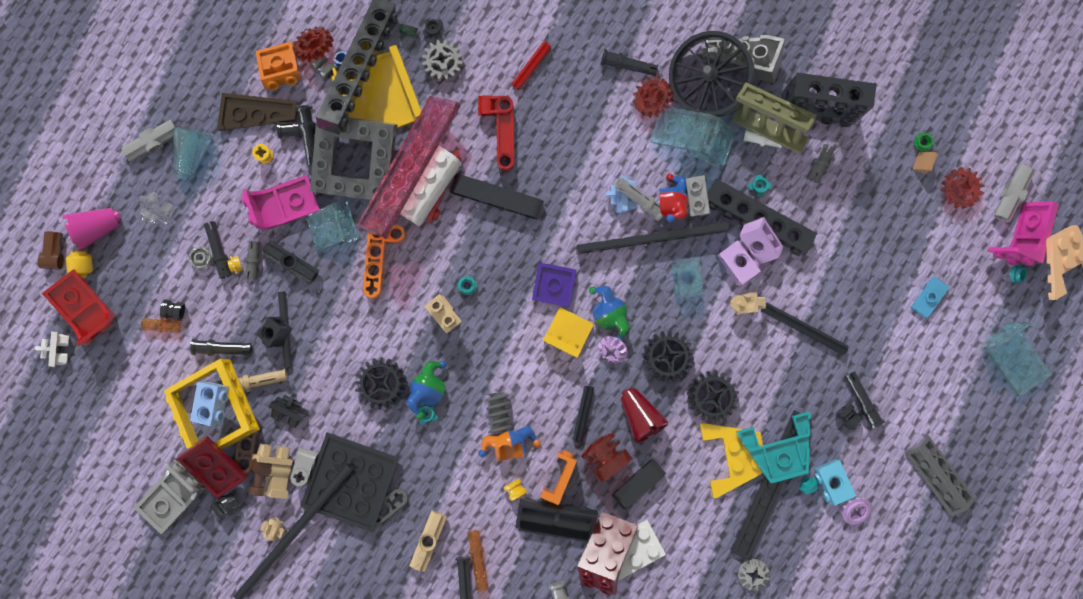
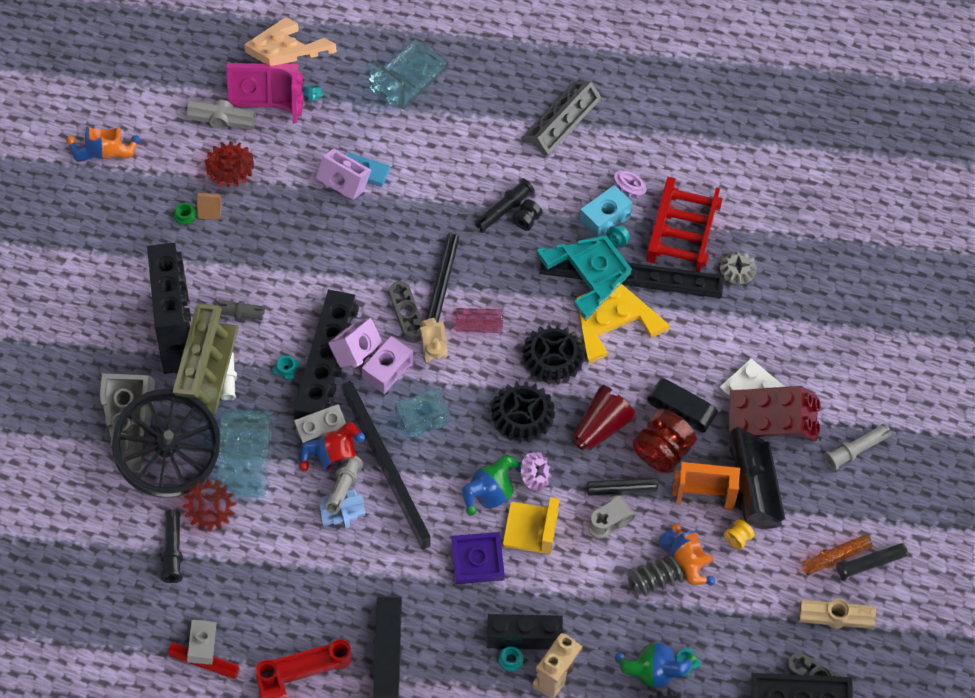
camera: 110 degrees left, 25 degrees down
(482, 300) = (523, 631): none -> black brick
(543, 65) = (201, 642): none -> light grey plate
(558, 399) = (610, 518): none -> light grey piece
(761, 348) = (479, 320): none -> clear pink panel
(799, 297) = (408, 302): none -> dark grey beam
(821, 534) = (663, 230): none -> red fence
(926, 275) = (354, 177): none -> lavender brick
(1008, 91) = (102, 145): none -> piece

